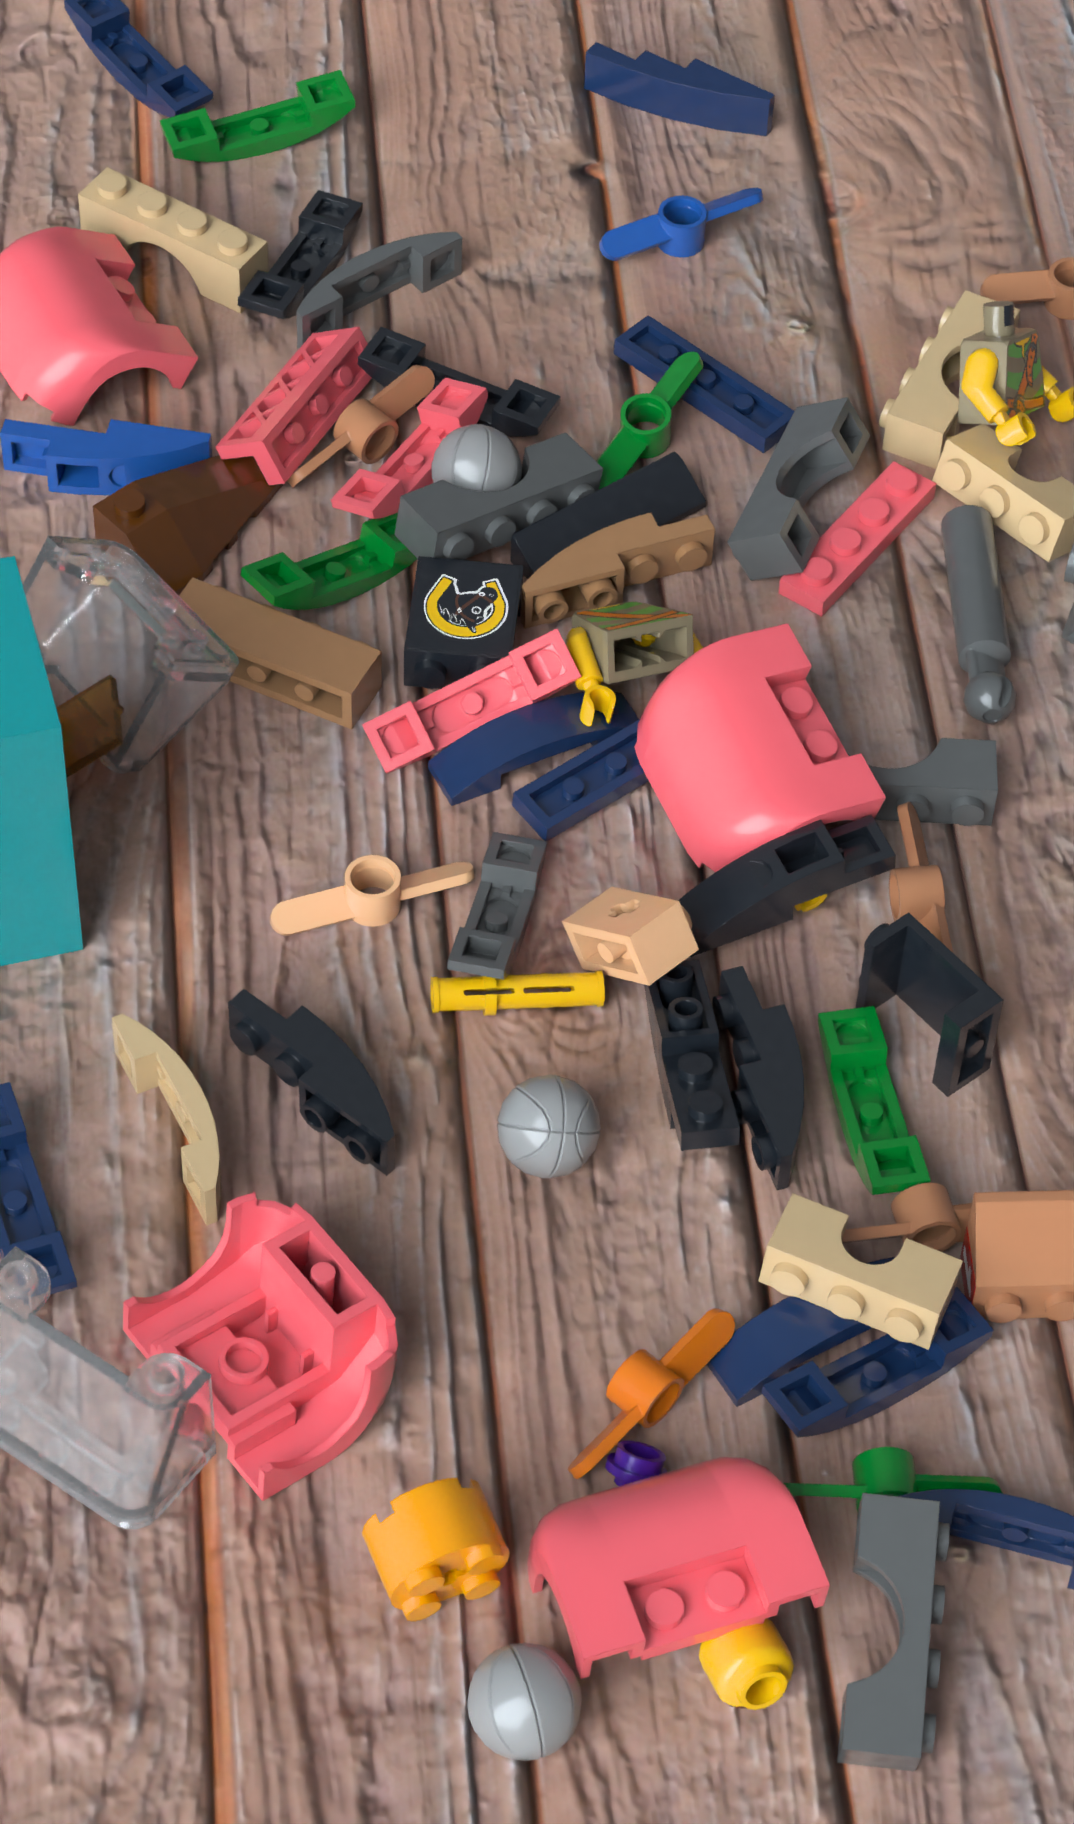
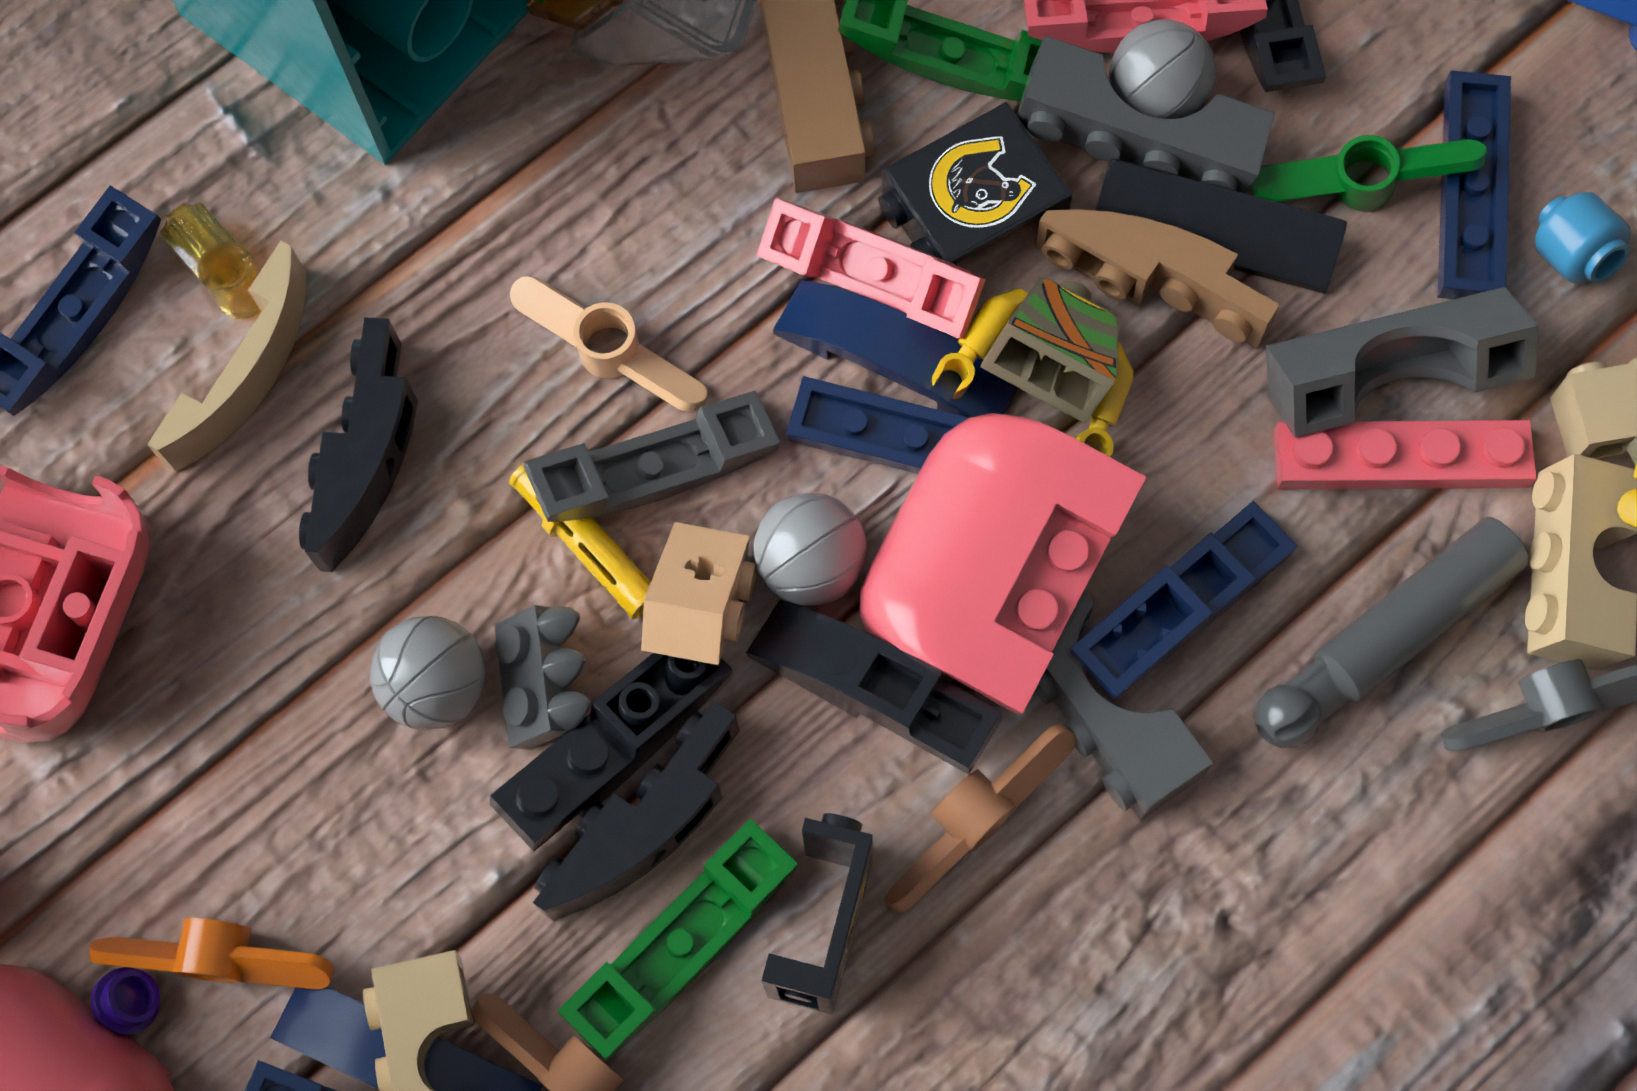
camera: 60 degrees right, 20 degrees up
(91, 1080) = (213, 258): none -> clear yellow piece
(617, 1085) = (537, 673): none -> dark grey plate
(654, 855) = (810, 549): none -> light grey piece
(794, 356) = (1582, 238): none -> dark azure head
(866, 692) = (1183, 600): none -> dark blue slope

